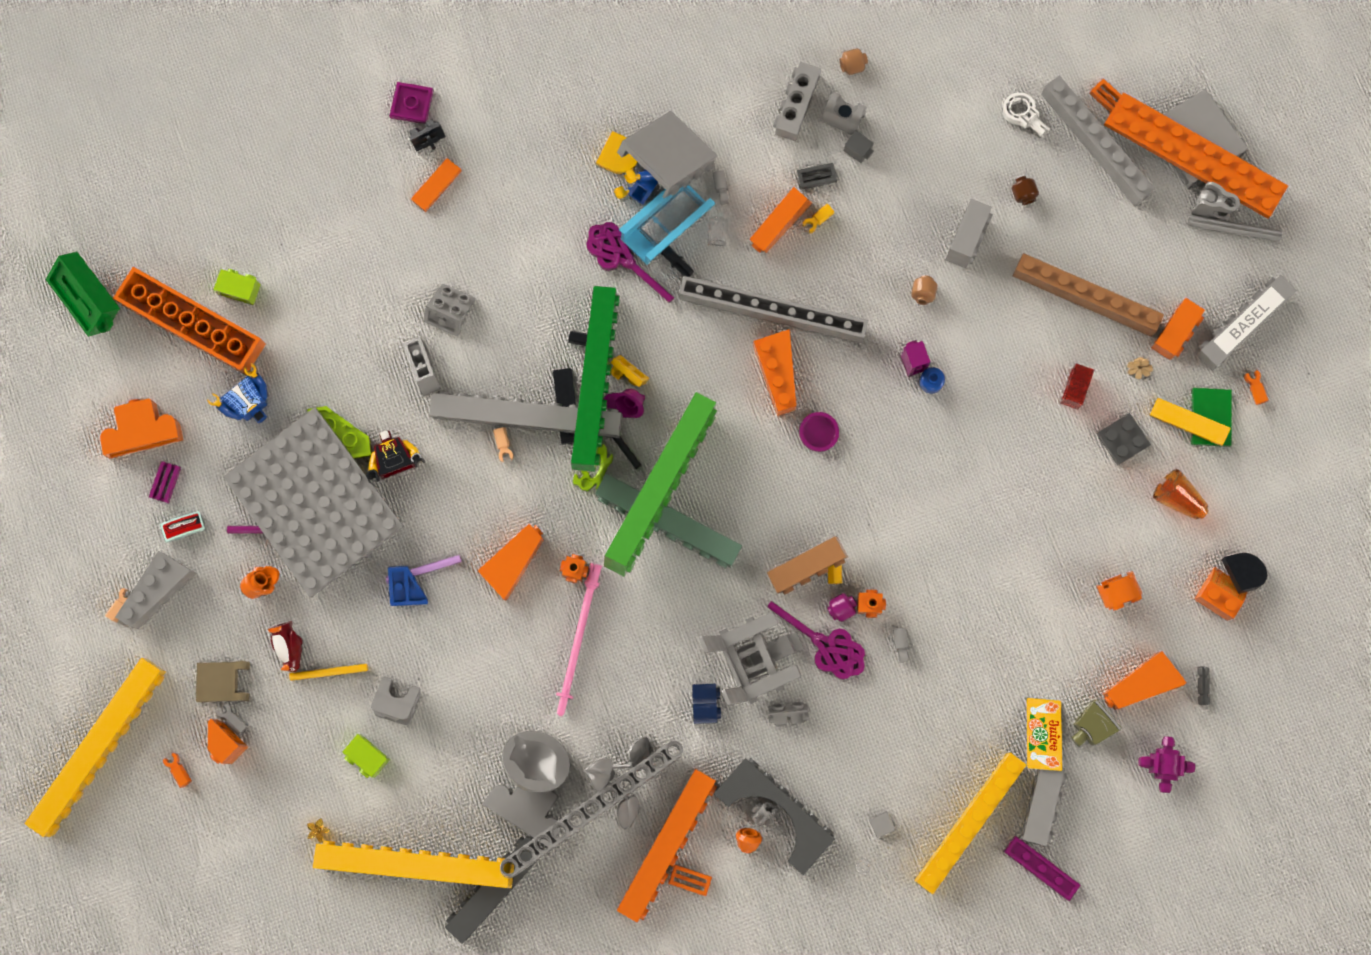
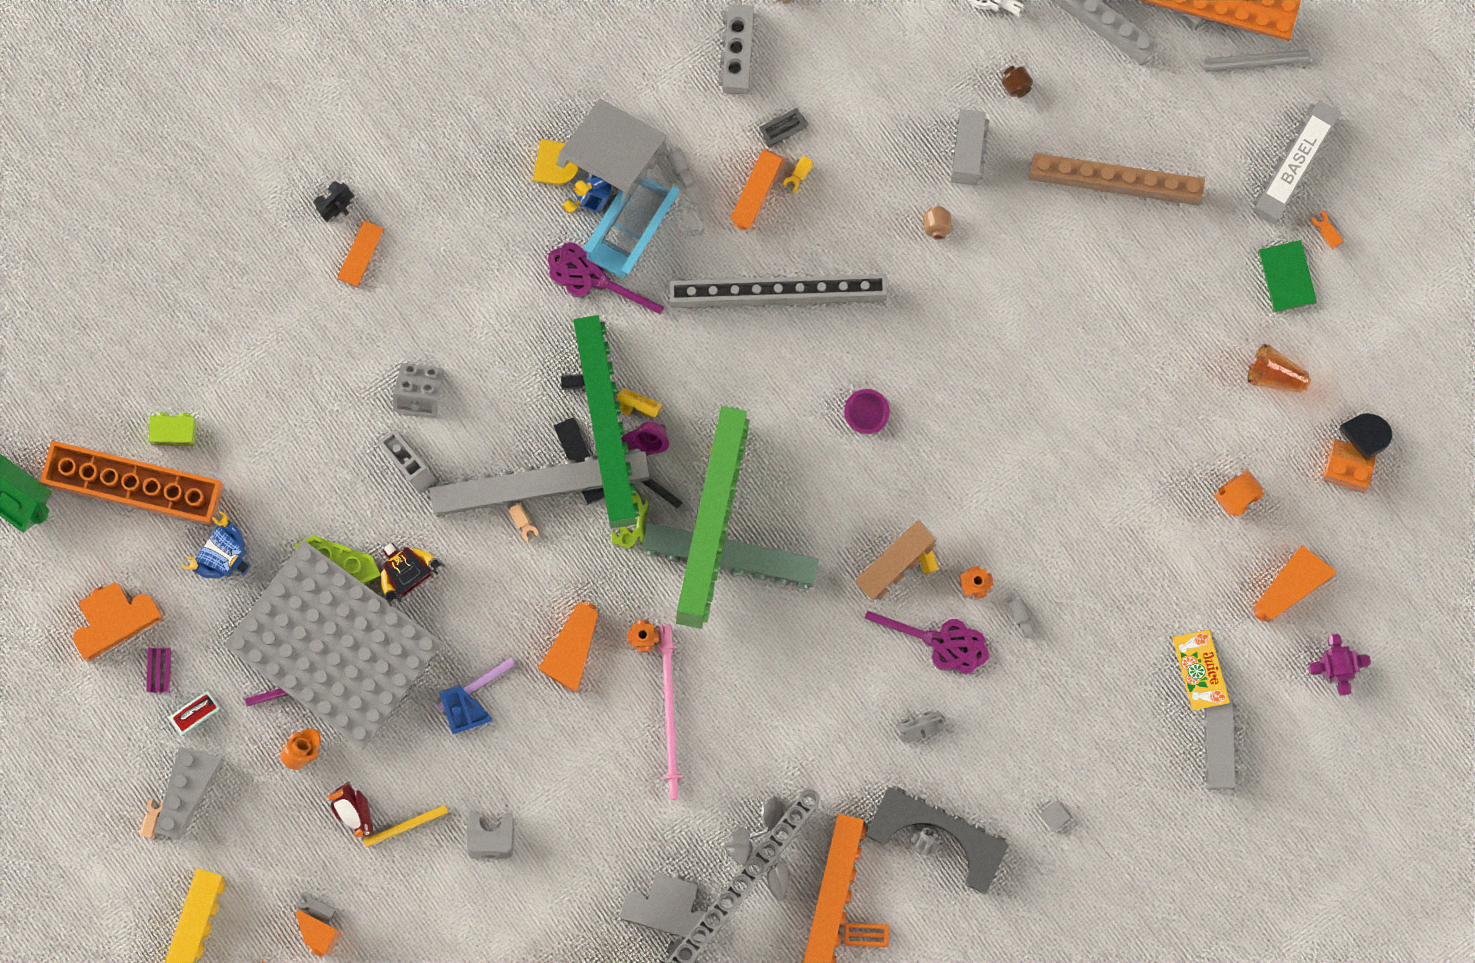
camera: 20 degrees left, 0 degrees up
(220, 681) = (288, 870): dark tan flag -> none
(366, 756) = (475, 904): lime brick -> none
(411, 103) = (304, 168): magenta tile -> none
(535, 761) = (664, 855): light grey piece -> none
(677, 261) = (657, 267): black axle -> none
(705, 703) = (828, 741): dark blue brick -> none
(748, 839) = (917, 873): orange cone -> none
(762, 655) = (874, 671): light grey piece -> none
(777, 369) = (801, 354): orange wedge -> none
(842, 114) = (793, 51): light grey piece -> none
(842, 607) = (946, 595): magenta head -> none
(859, 147) = (820, 82): dark grey brick -> none
(915, 357) = (948, 301): magenta brick -> none
(932, 380) = (974, 320): blue head -> none
(970, 823) = (1148, 786): yellow brick -> none
(1042, 868) = (1238, 813): magenta tile -> none
(1077, 386) = (1133, 283): clear red brick -> none
(1094, 725) = (1251, 644): olive torso -> none
(1123, 439) = (1199, 327): dark grey plate -> none
(1139, 367) = (1195, 243): tan plant -> none
(1178, 329) = (1226, 189): orange brick -> none
(1190, 422) = (1265, 288): yellow tile -> none
(1203, 685) = (1356, 569): dark grey axle -> none
(1213, 199) = (1224, 37): light grey piece -> none

